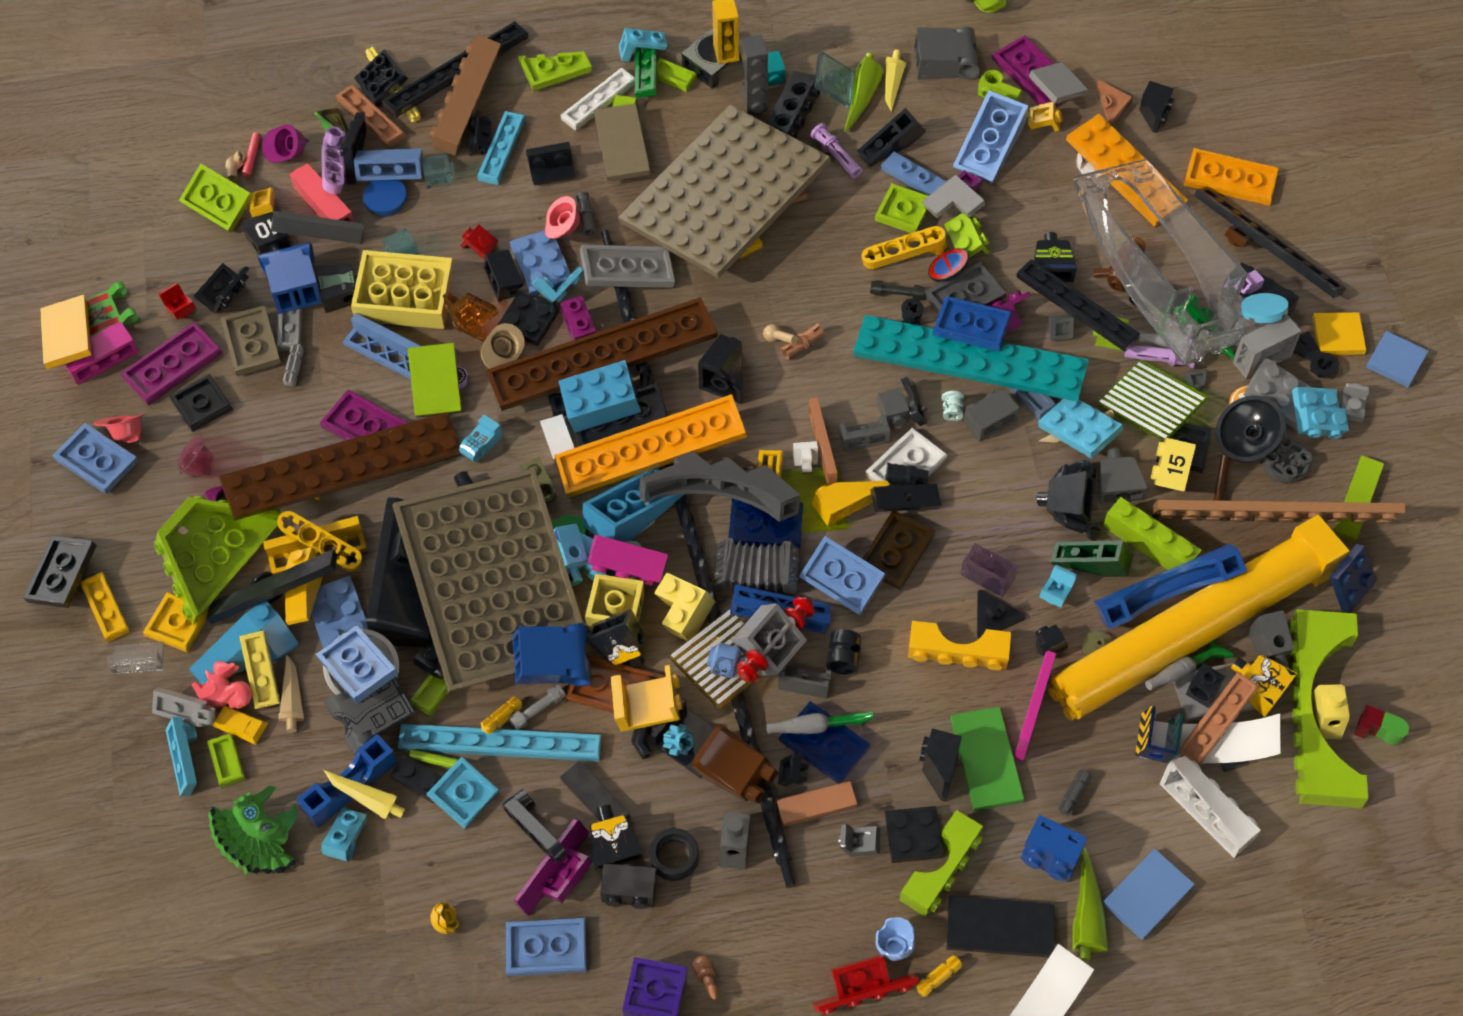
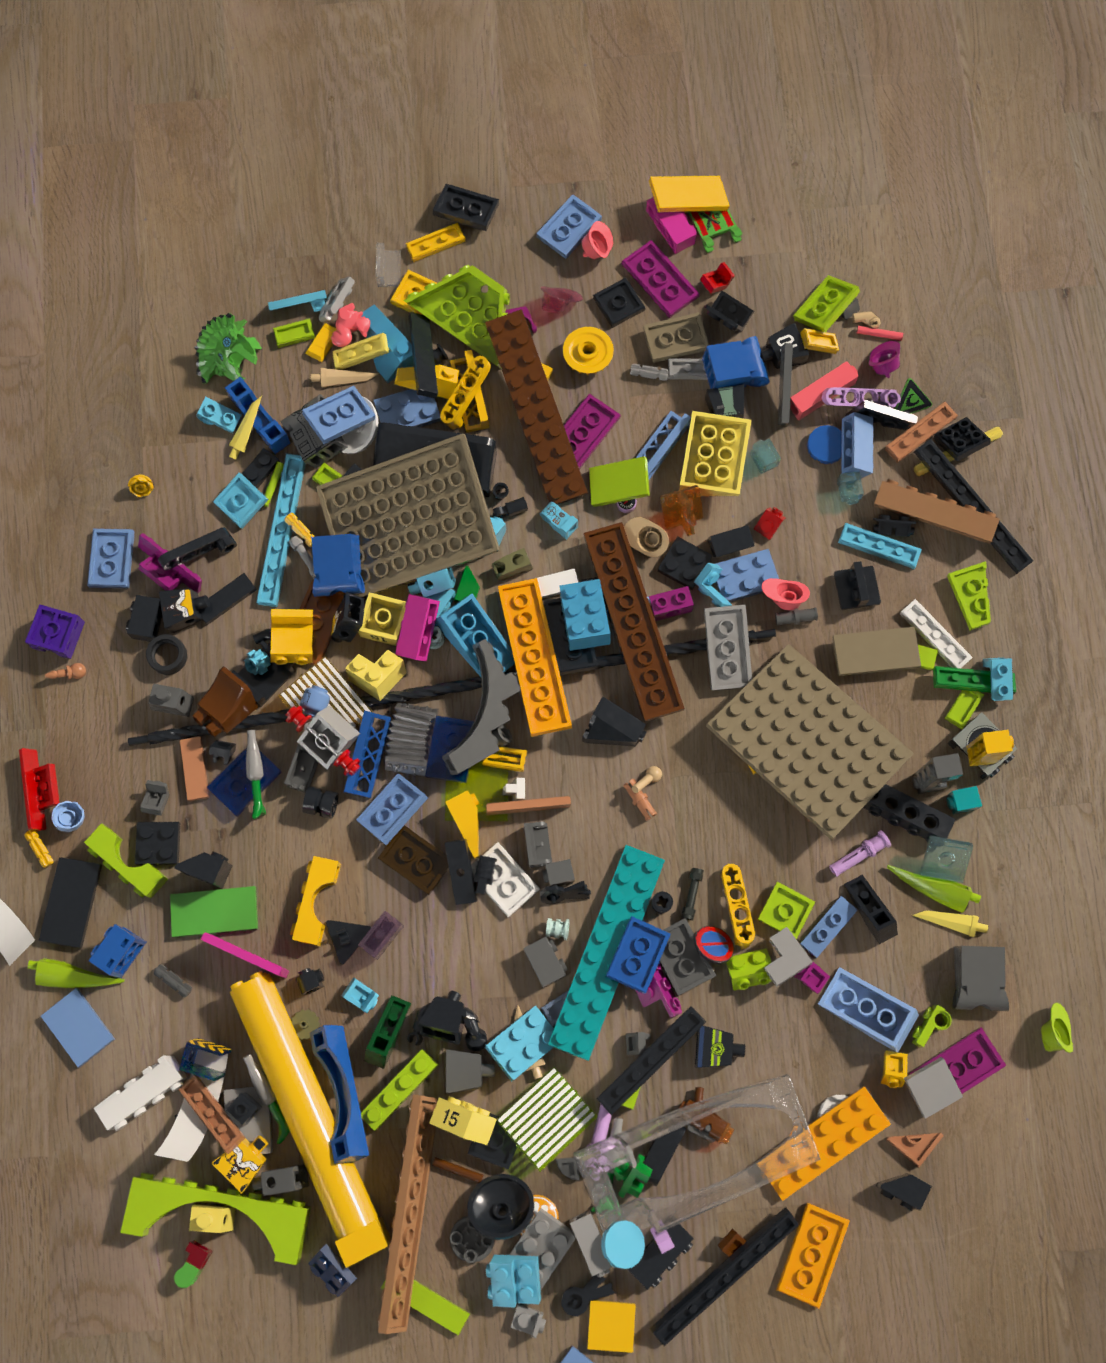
camera: 95 degrees right, 15 degrees up
(263, 412) = (590, 340): none -> yellow gear

